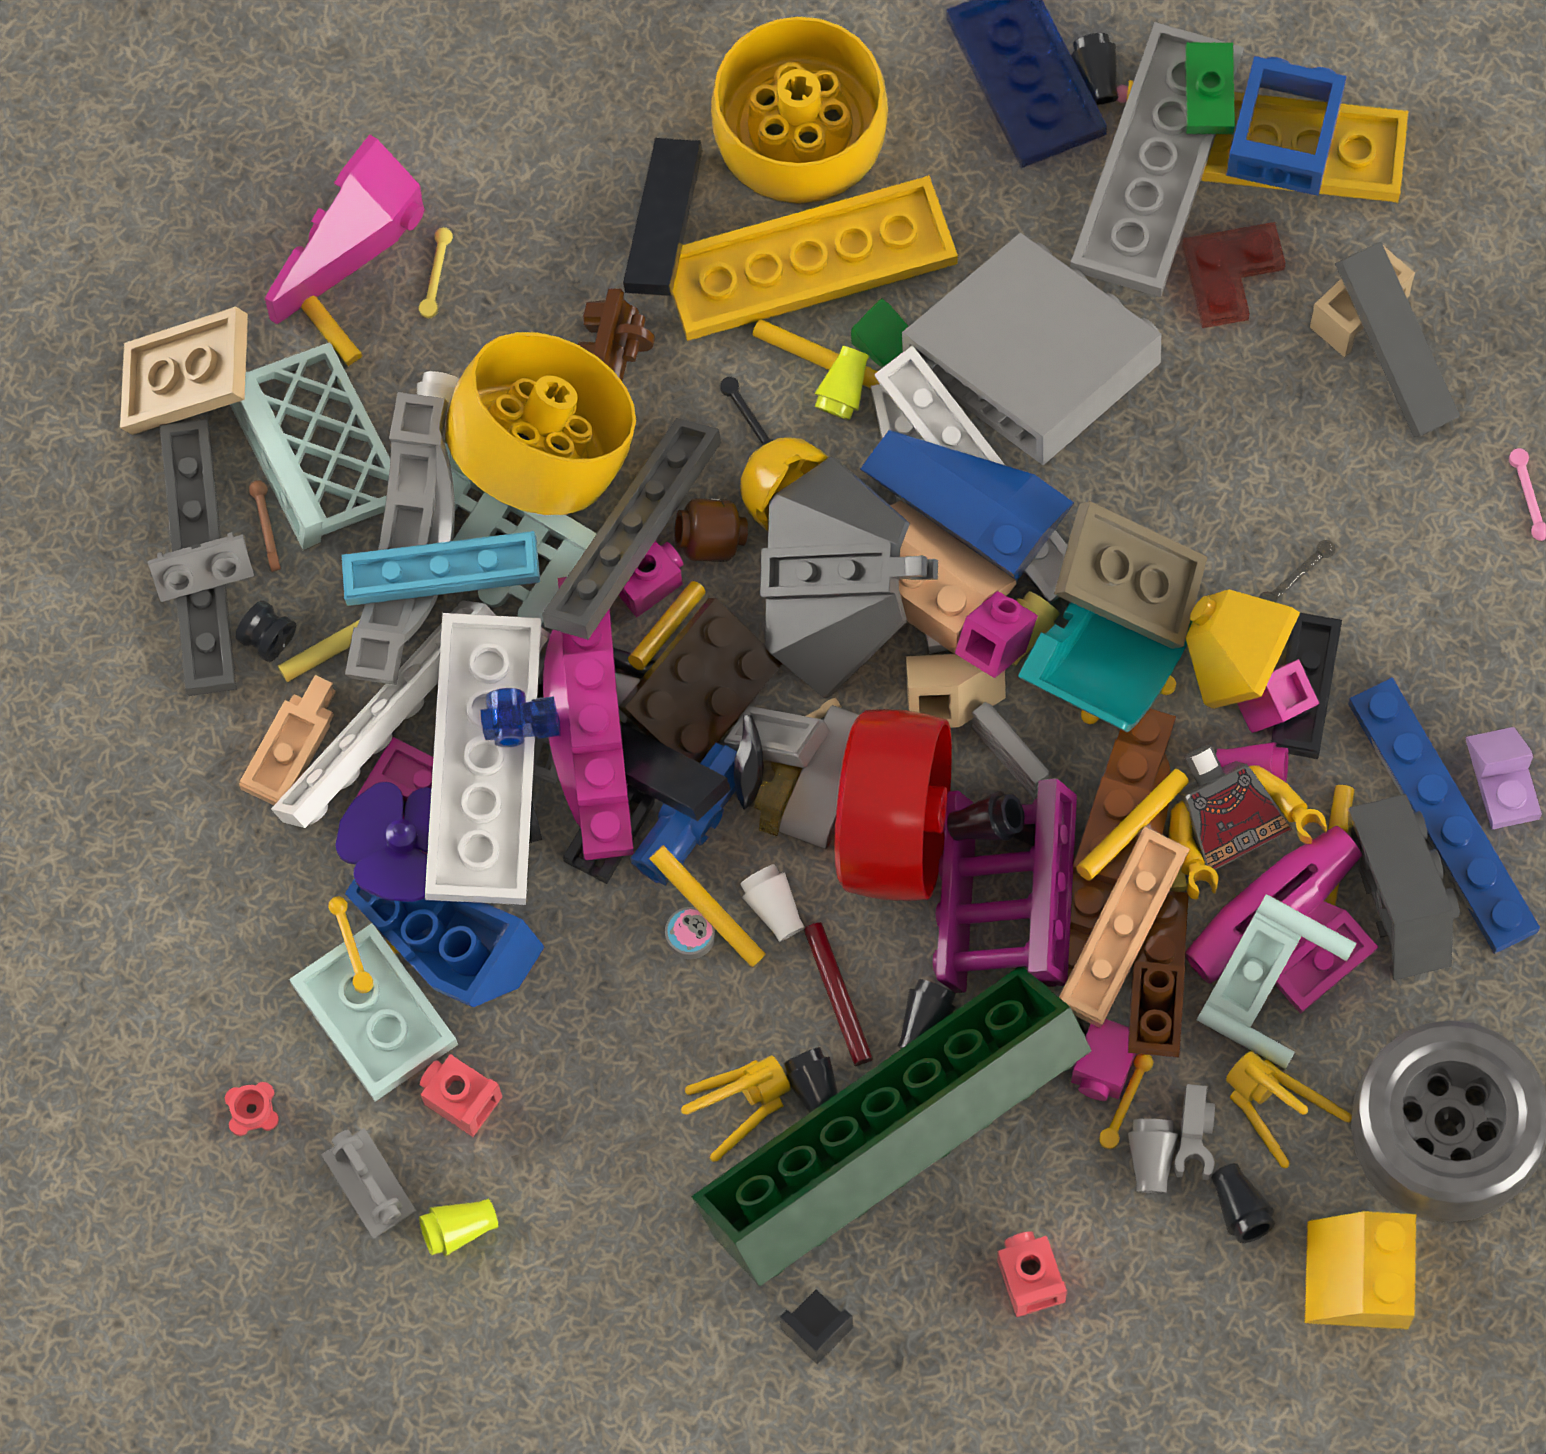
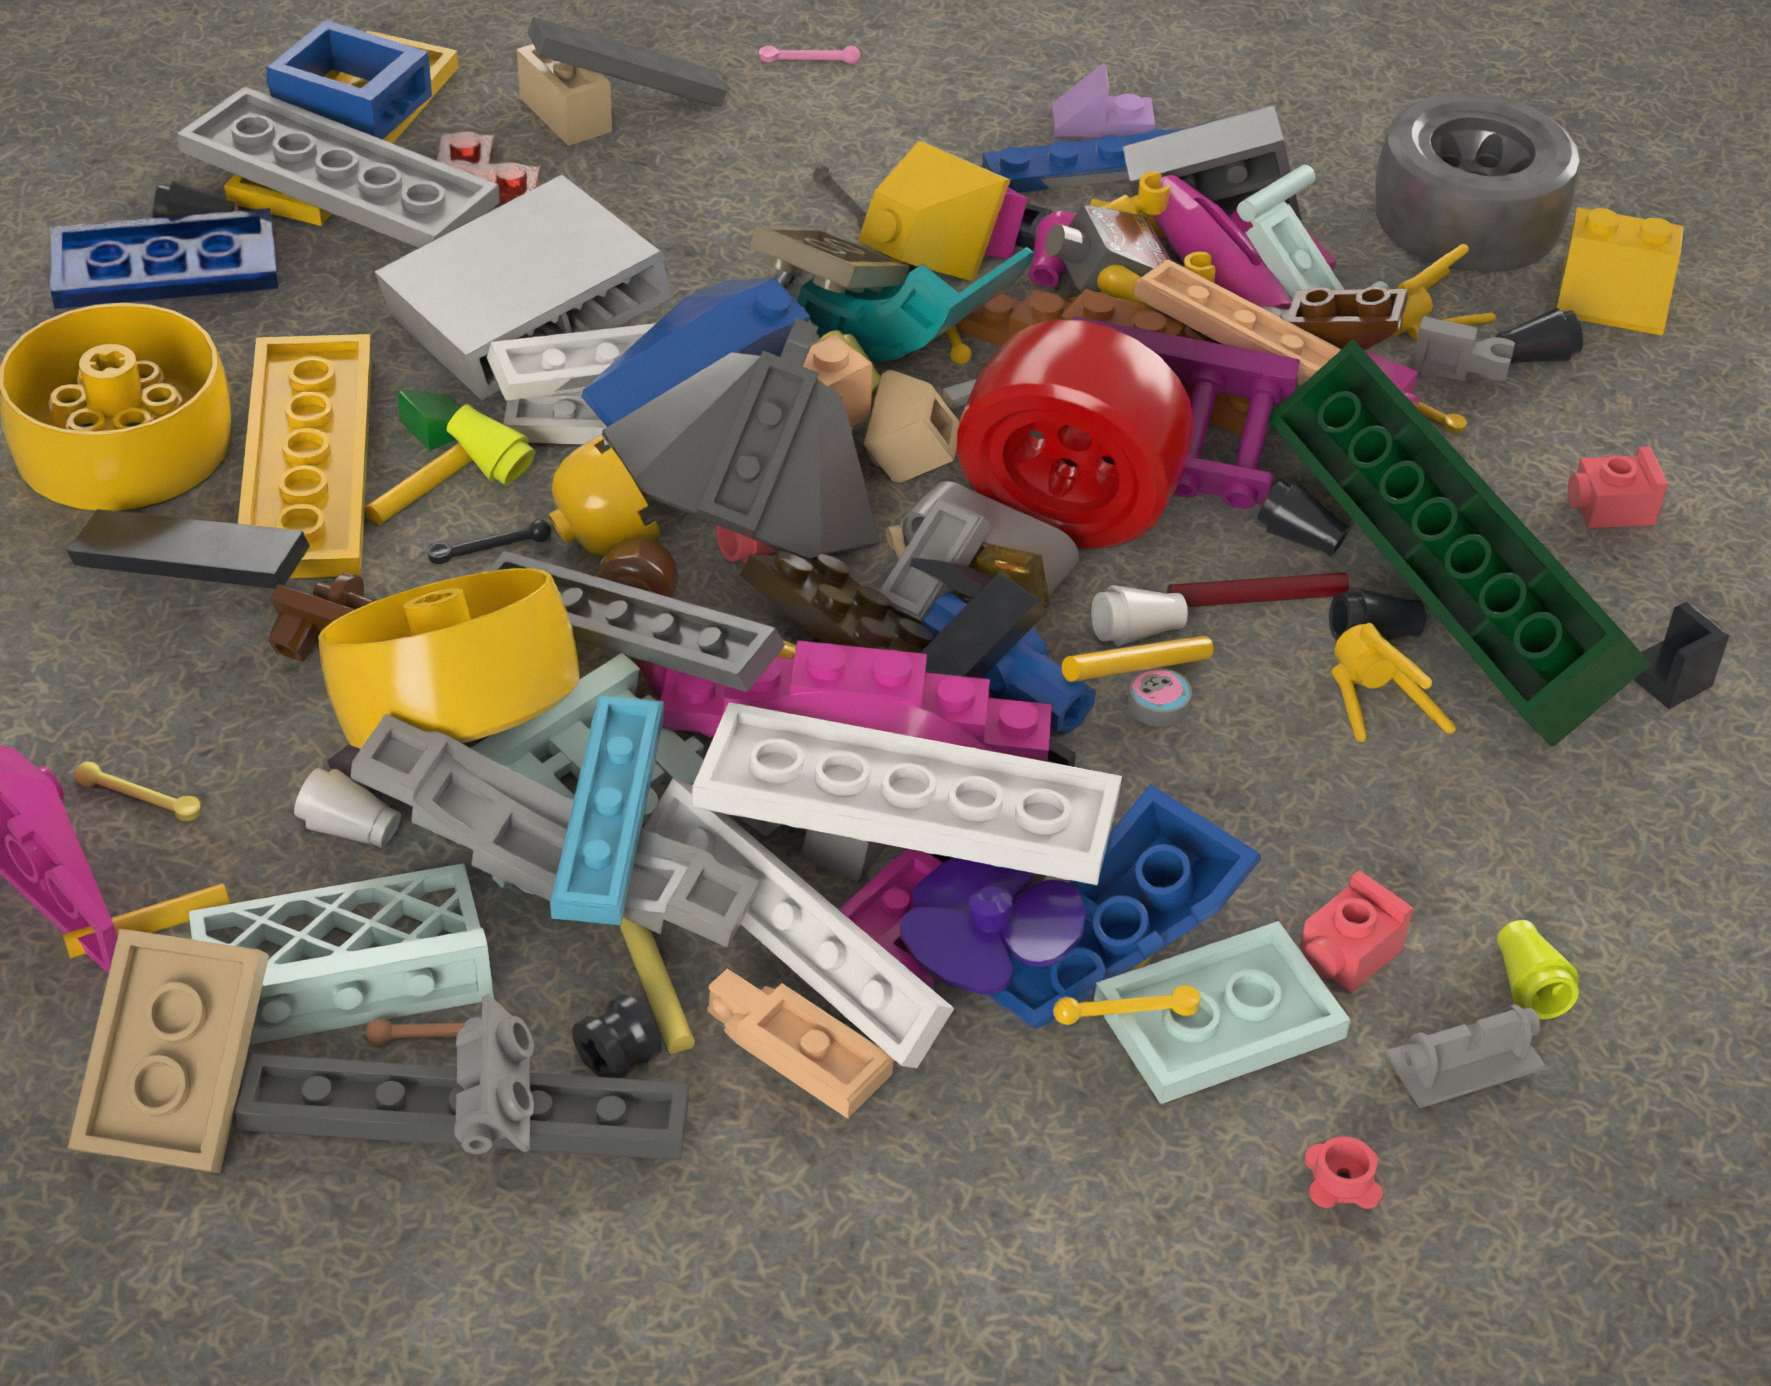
camera: 85 degrees left, 25 degrees down
(511, 718) = (880, 727): clear blue plate -> none
(996, 634) = (884, 341): dark pink brick -> none
(1132, 825) = (1131, 292): yellow bar -> none
(1152, 1153) = (1481, 387): light grey cone -> none
(1209, 88) = (283, 105): green plate -> none

